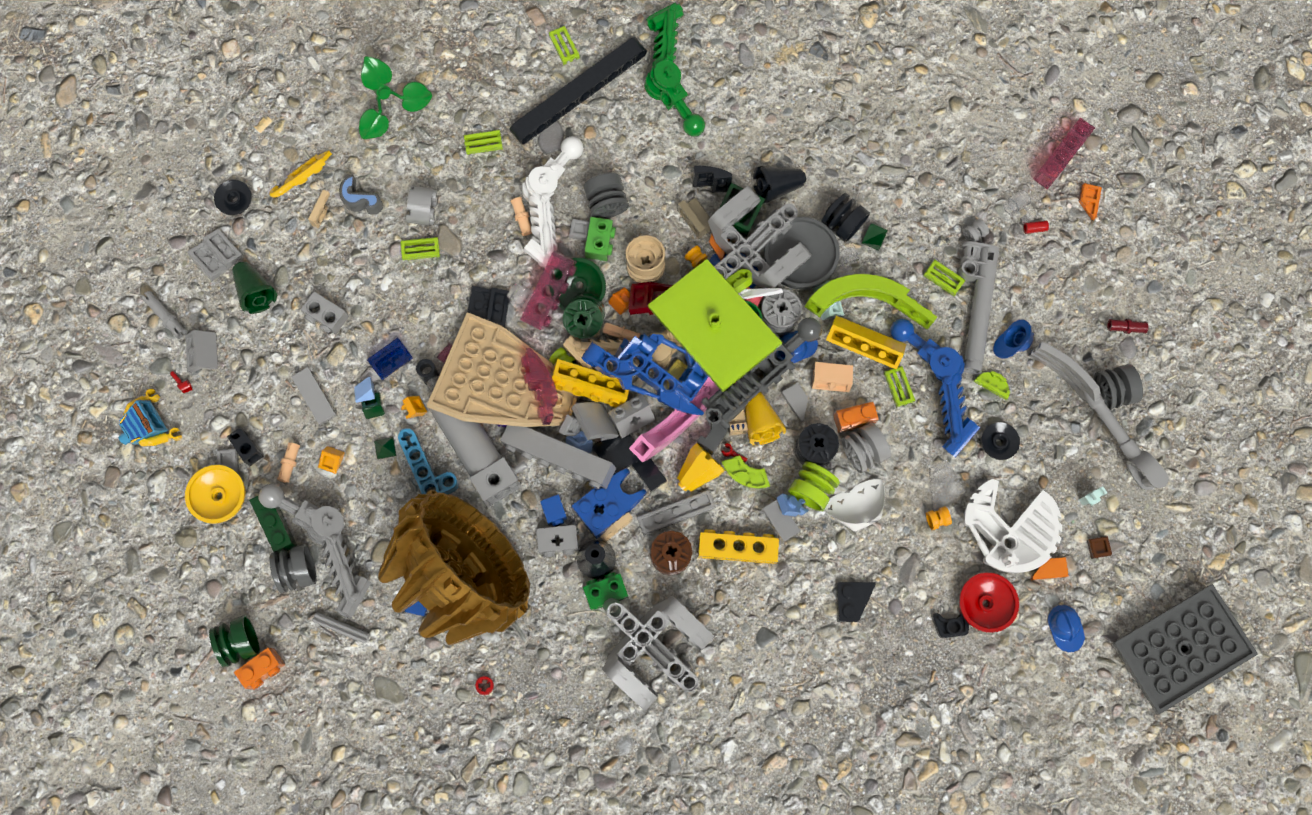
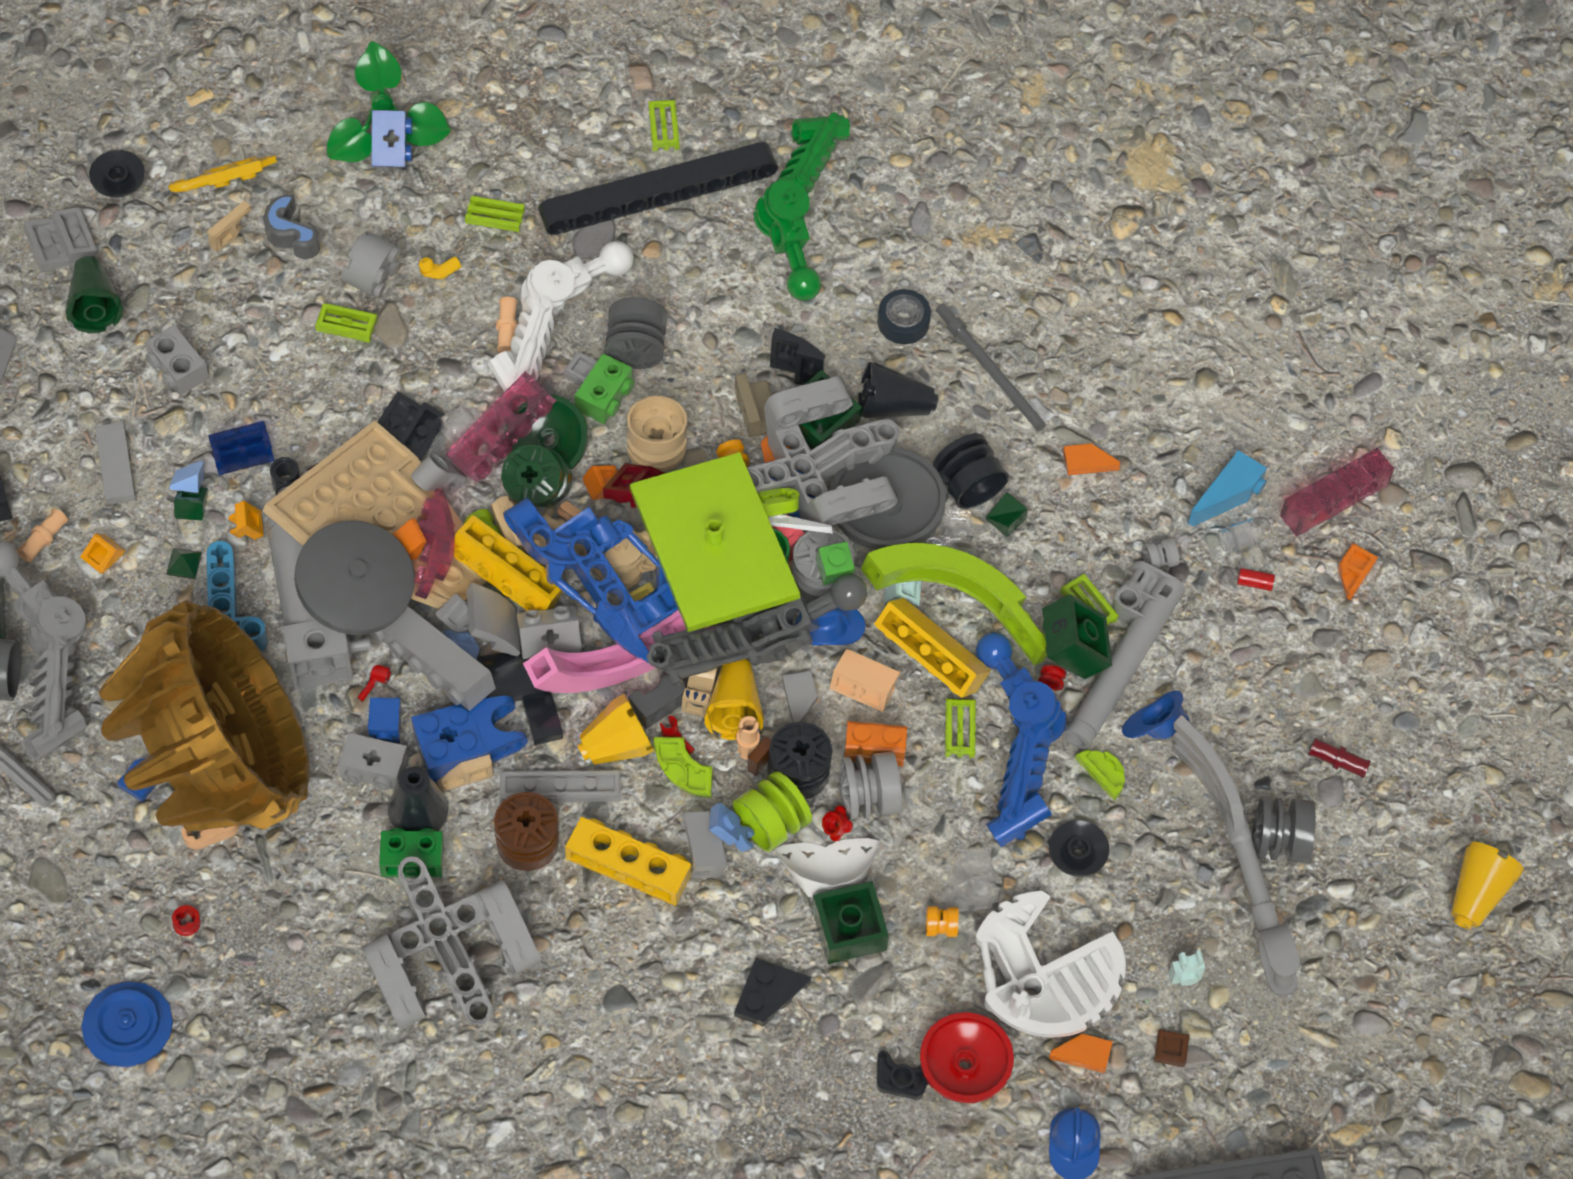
camera: 20 degrees right, 15 degrees down
(391, 106) = (382, 125): none -> brick
(462, 194) = (438, 271): none -> yellow arm
(475, 766) = (127, 1024): none -> blue piece
(502, 430) = (354, 577): none -> dark grey dish
(520, 335) = (437, 472): none -> light grey piece
(523, 391) = (411, 538): none -> orange slope
(536, 479) = (378, 674): none -> red hand
(769, 119) = (904, 303): none -> wheel
(780, 439) = (747, 736): none -> light nougat pin
(789, 452) = (759, 756): none -> reddish brown tile
(794, 314) = (834, 562): none -> bright green brick
(797, 122) = (958, 329): none -> dark grey bar
(848, 480) = (830, 823): none -> red plate
(887, 540) = (850, 922): none -> dark green brick
(907, 182) = (1088, 459): none -> orange tile
(942, 335) = (1053, 677): none -> red bush
(951, 306) = (1077, 637): none -> dark green brick
(1001, 169) = (1230, 489): none -> dark azure slope
(1241, 379) = (1482, 883): none -> yellow cone

